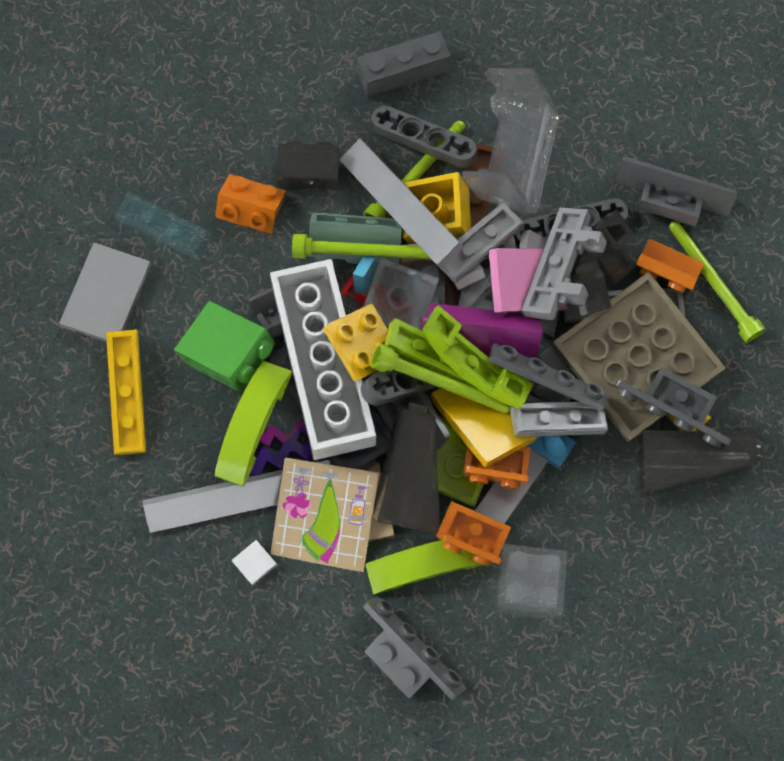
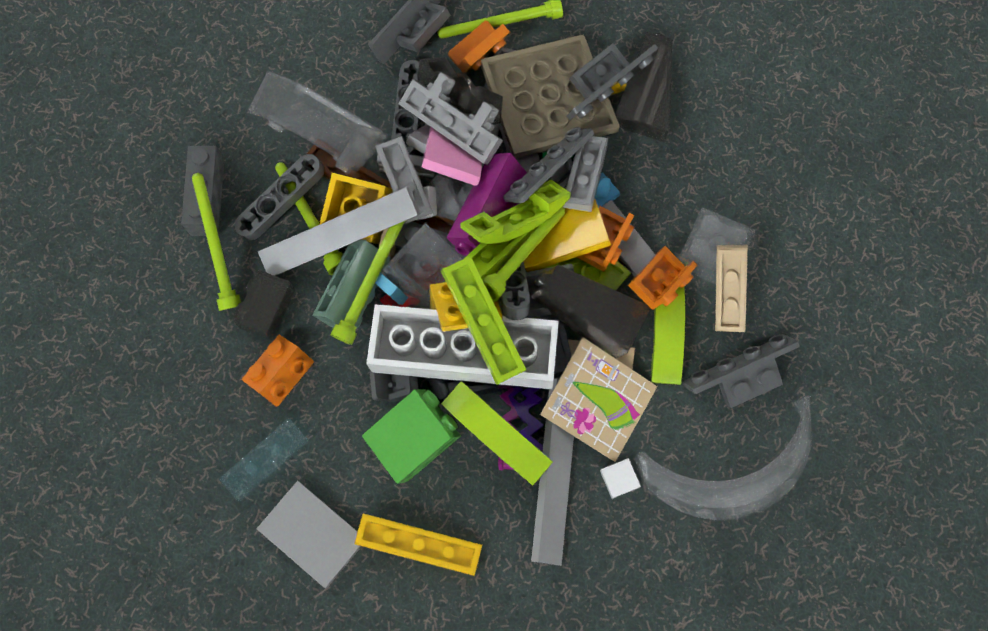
camera: 65 degrees left, 0 degrees up
(280, 693) = (737, 496): none -> clear windscreen
(305, 129) = (227, 297): none -> lime piece
(343, 359) = (483, 320): none -> lime plate
(487, 607) = (731, 288): none -> tan tile

